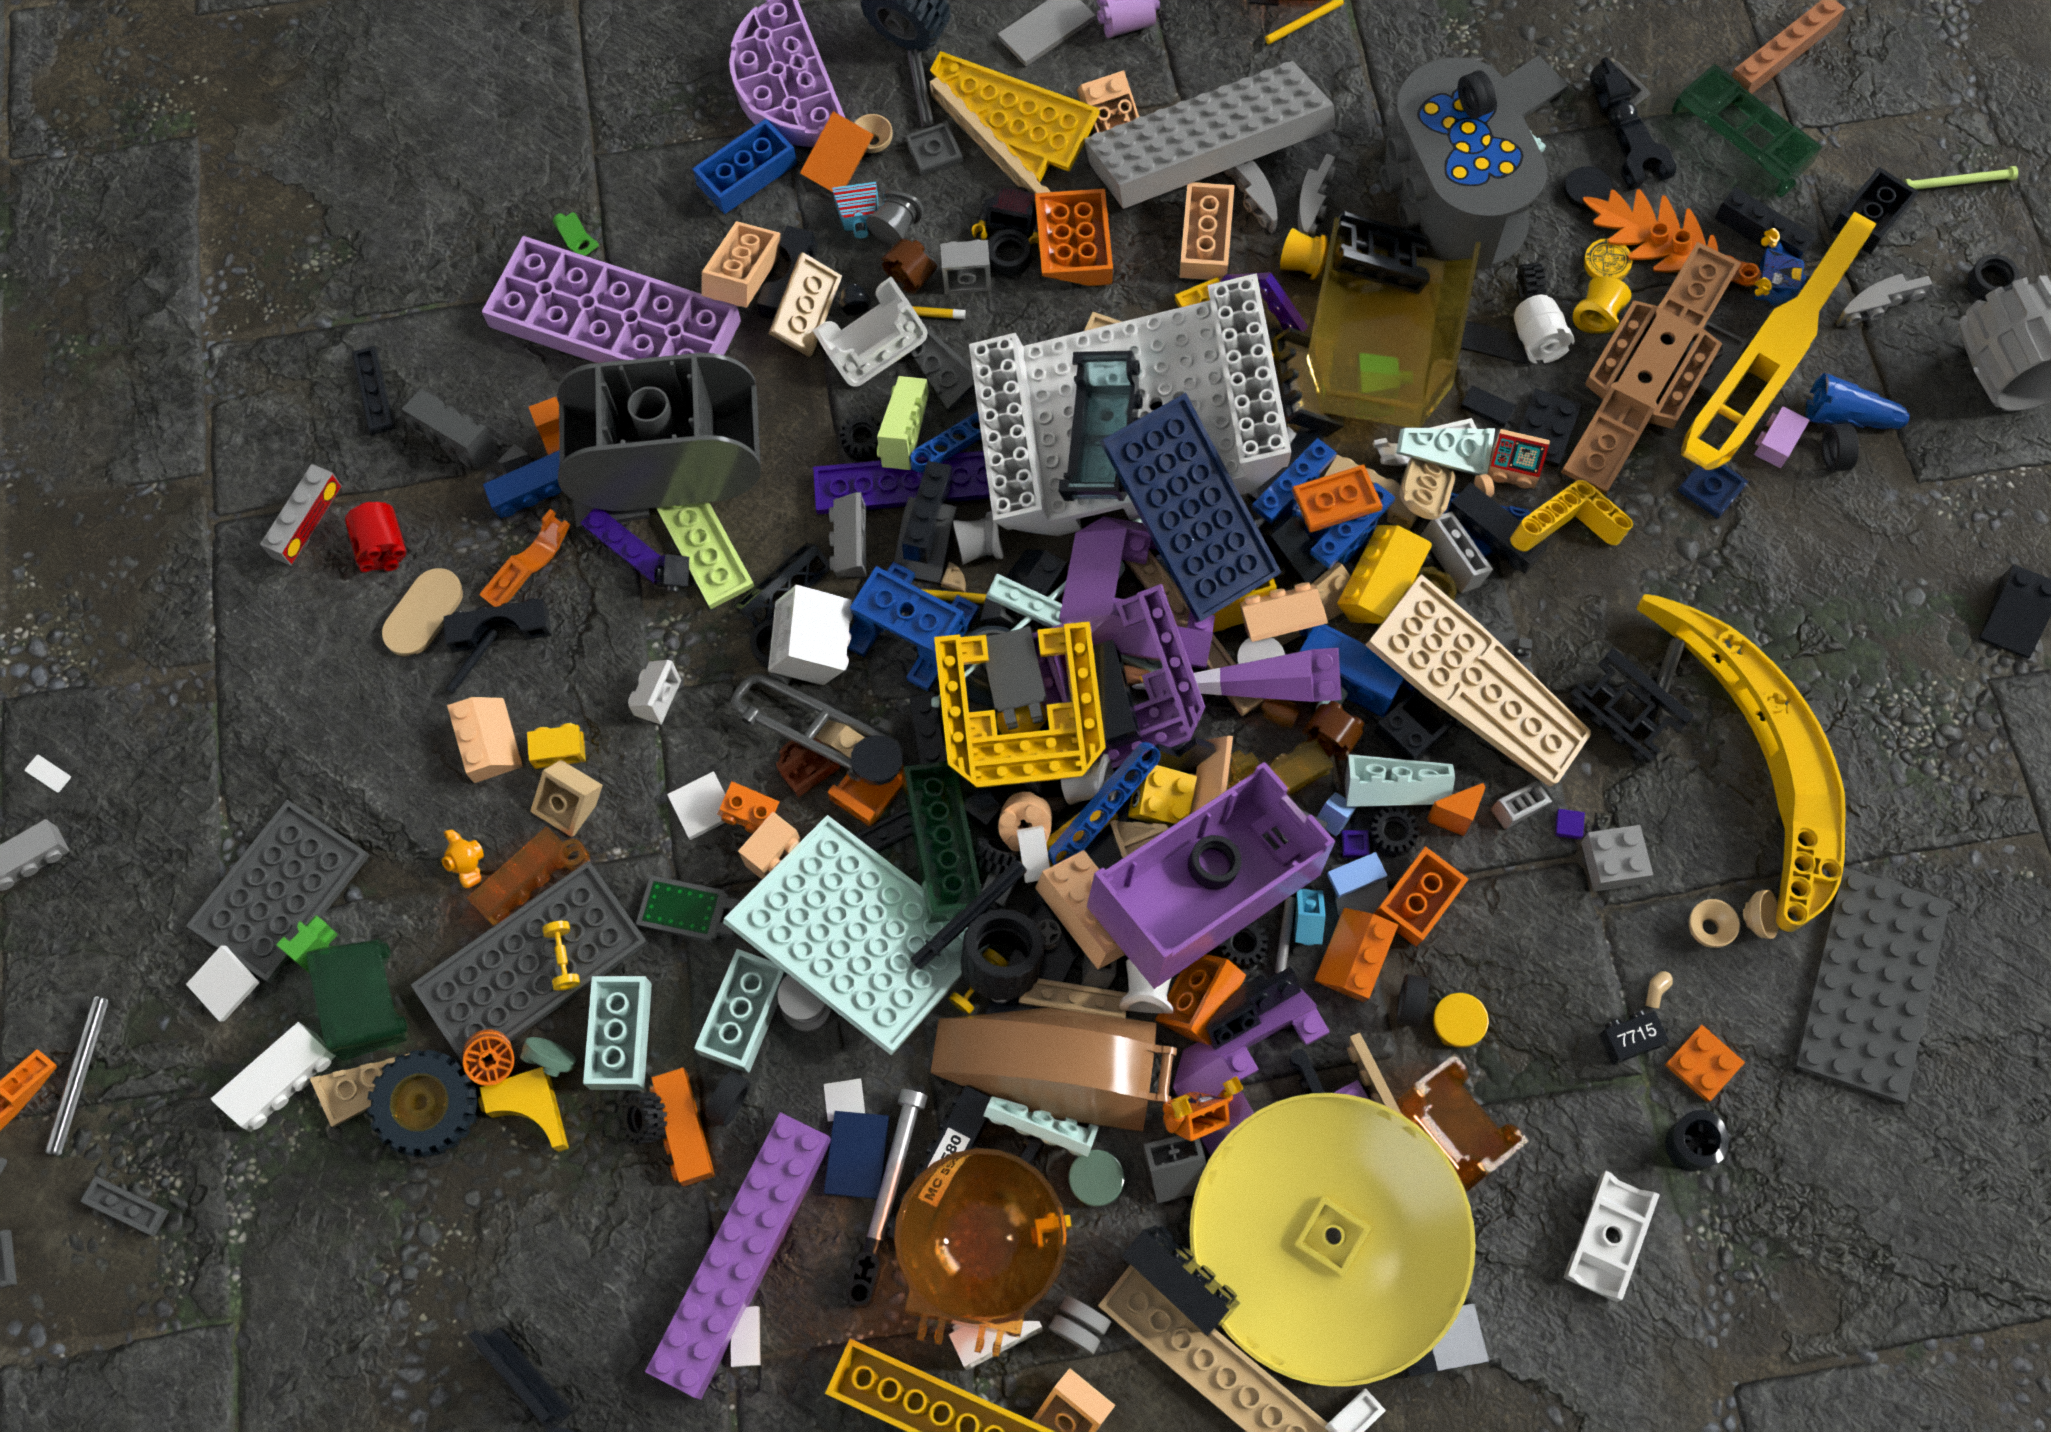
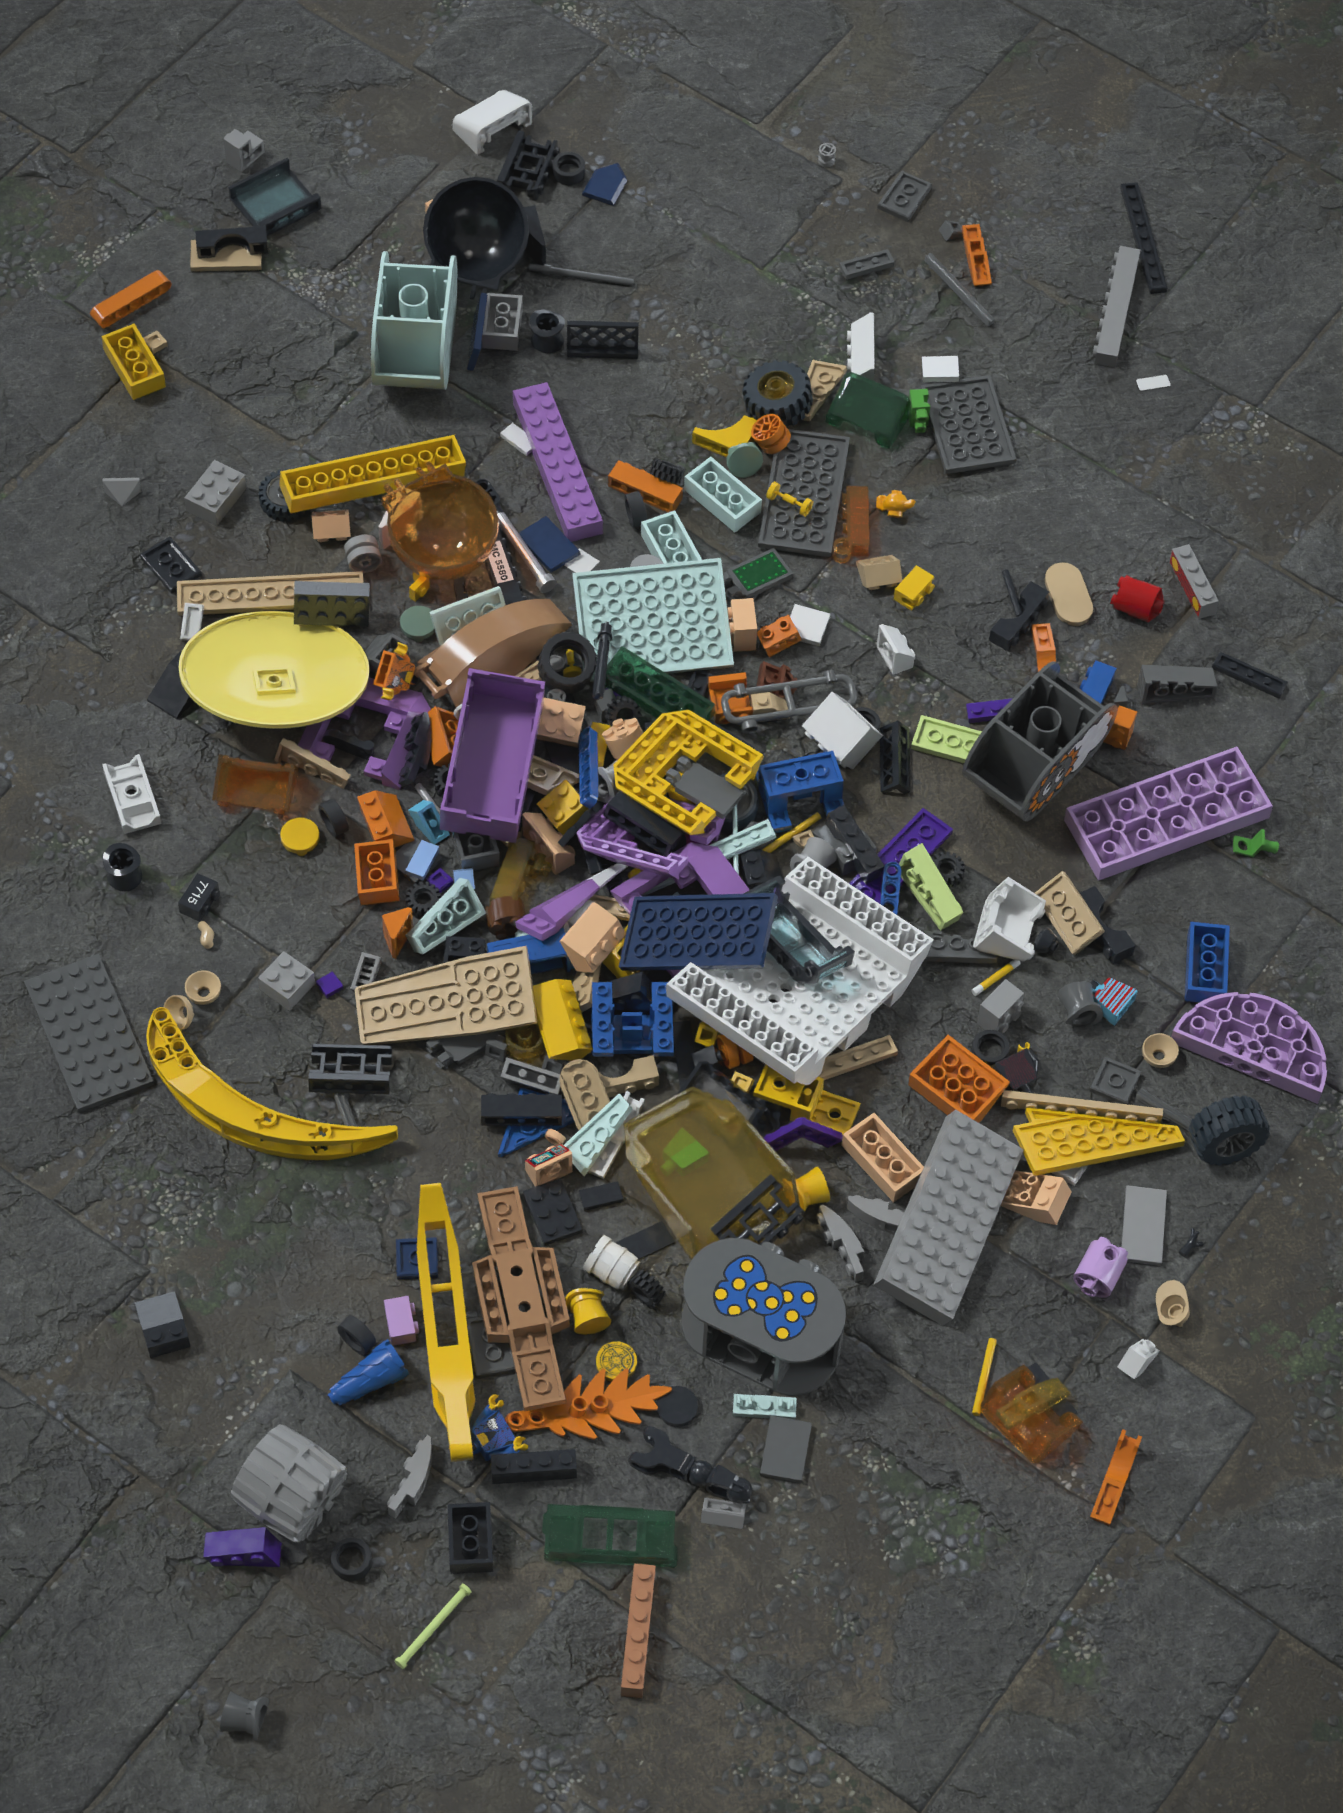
camera: 130 degrees right, 10 degrees down
(484, 737) = (956, 562): light nougat slope -> none
(672, 572) = (959, 710): black brick -> none
(740, 264) = (1128, 892): light nougat brick -> none
(836, 153) = (1160, 1013): orange tile -> none
(848, 536) = (883, 803): light grey slope -> none
(876, 760) = (733, 697): black tile -> none
(908, 264) = (1036, 981): reddish brown brick -> none
(1033, 852) = (602, 722): white tile -> none
(1222, 845) = (498, 762): black tyre -> none
(1337, 498) = (624, 1018): orange tile -> none
(1476, 94) = (783, 1313): black tyre -> none
(1576, 500) = (488, 1145): yellow beam -> none
(1704, 1063) = (149, 919): orange plate -> none

